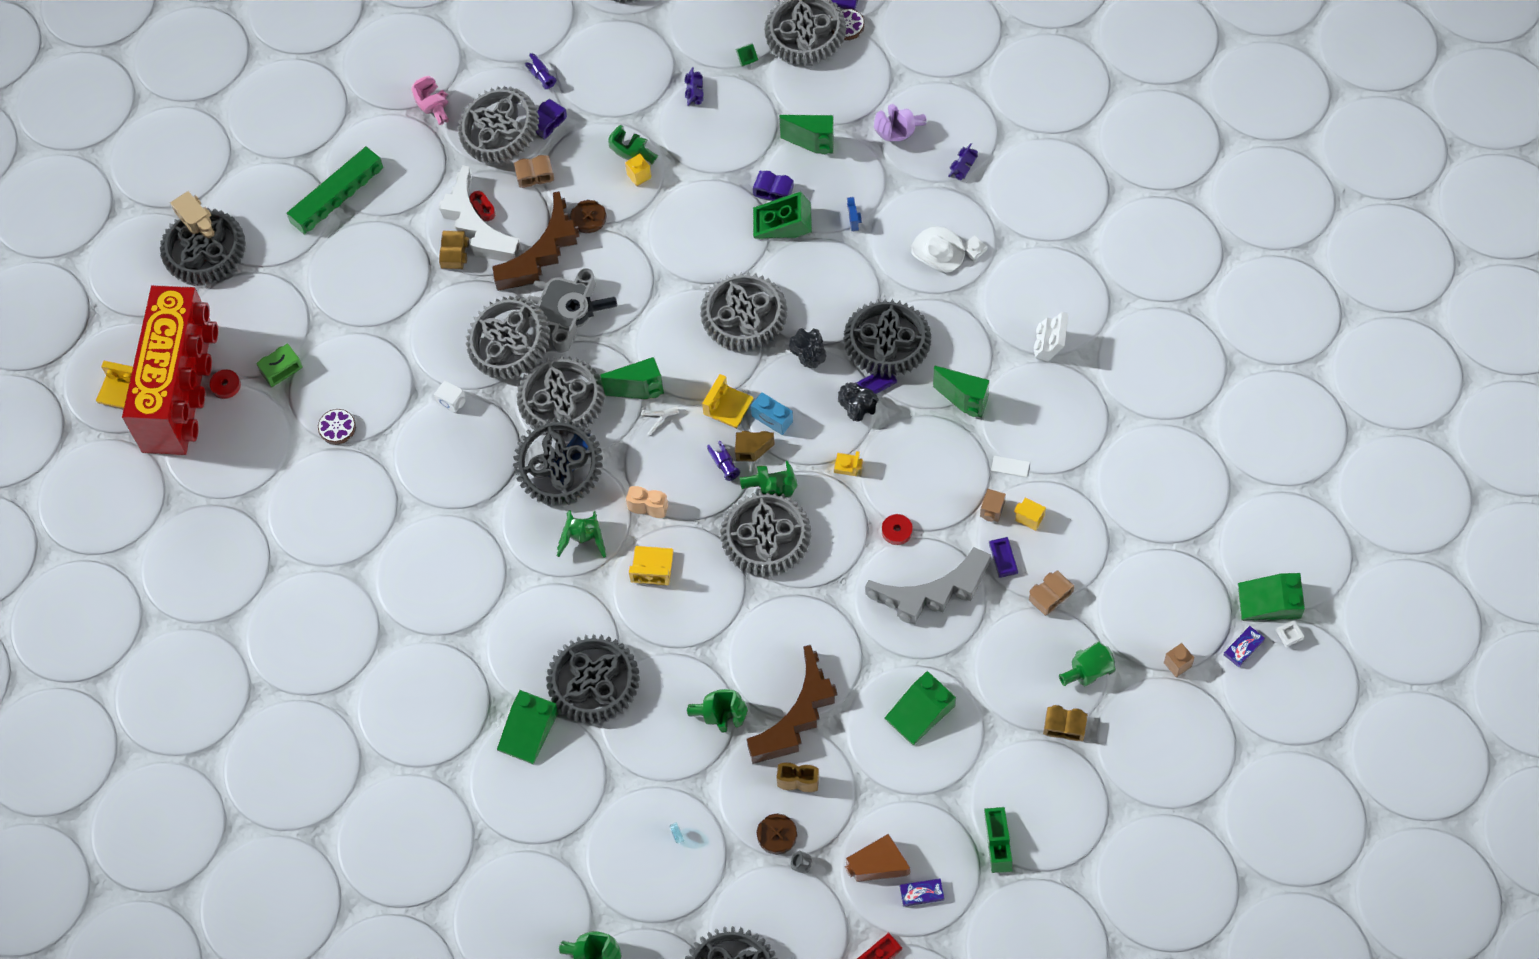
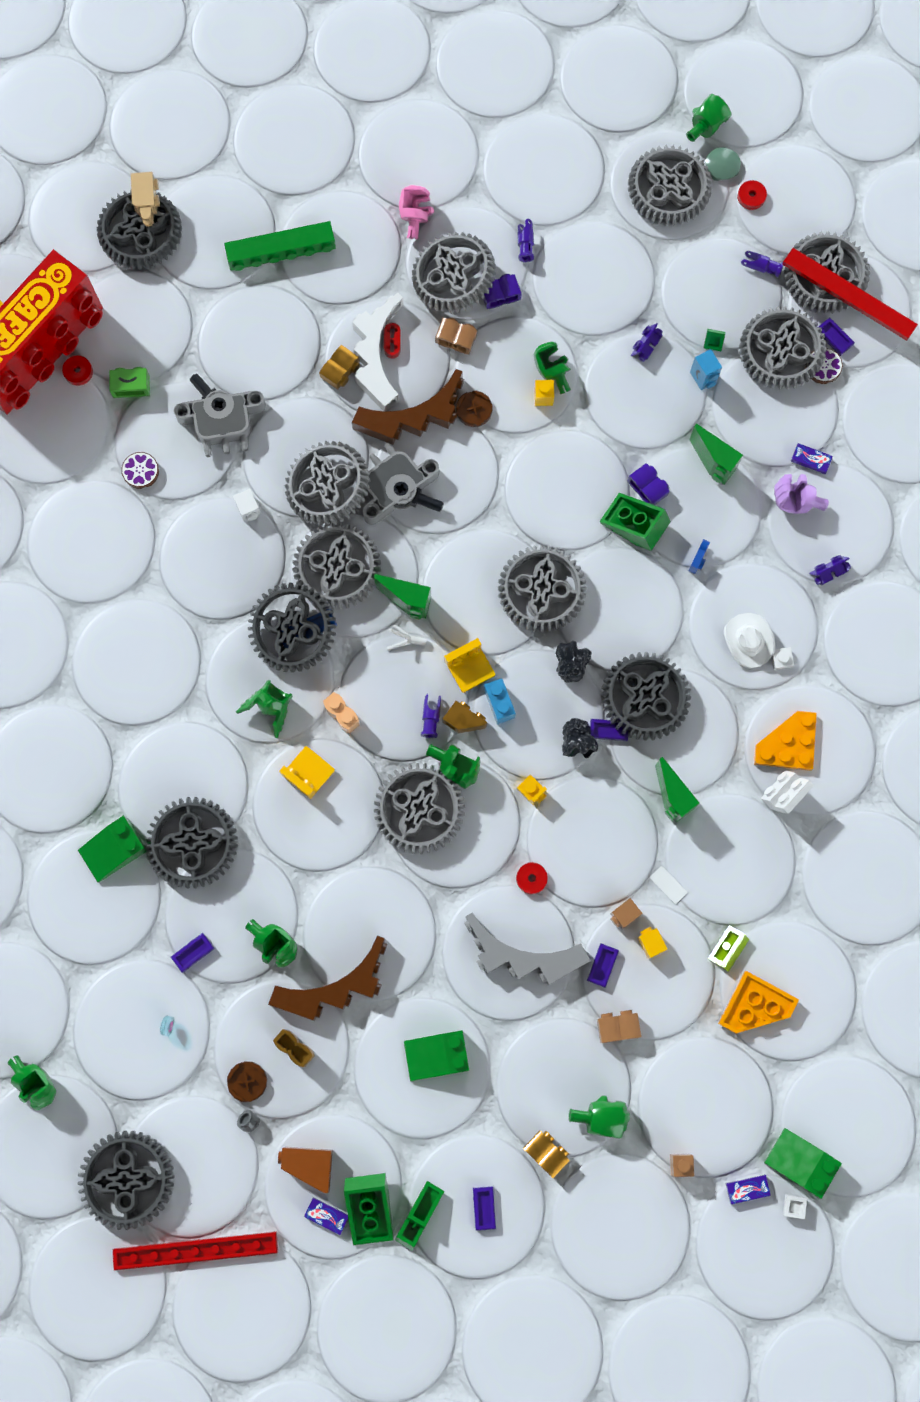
camera: 30 degrees right, 15 degrees up
(376, 344) = (216, 424): none -> piece
(655, 765) = (192, 952): none -> dark purple tile
(757, 77) = (706, 369): none -> dark azure brick
(887, 94) = (811, 458): none -> tile
(953, 861) = (368, 1209): none -> green slope
(1026, 305) = (789, 744): none -> light orange plate
(1046, 800) = (484, 1208): none -> dark purple tile
(1093, 481) = (729, 948): none -> lime slope
(1146, 507) = (756, 1005): none -> light orange plate

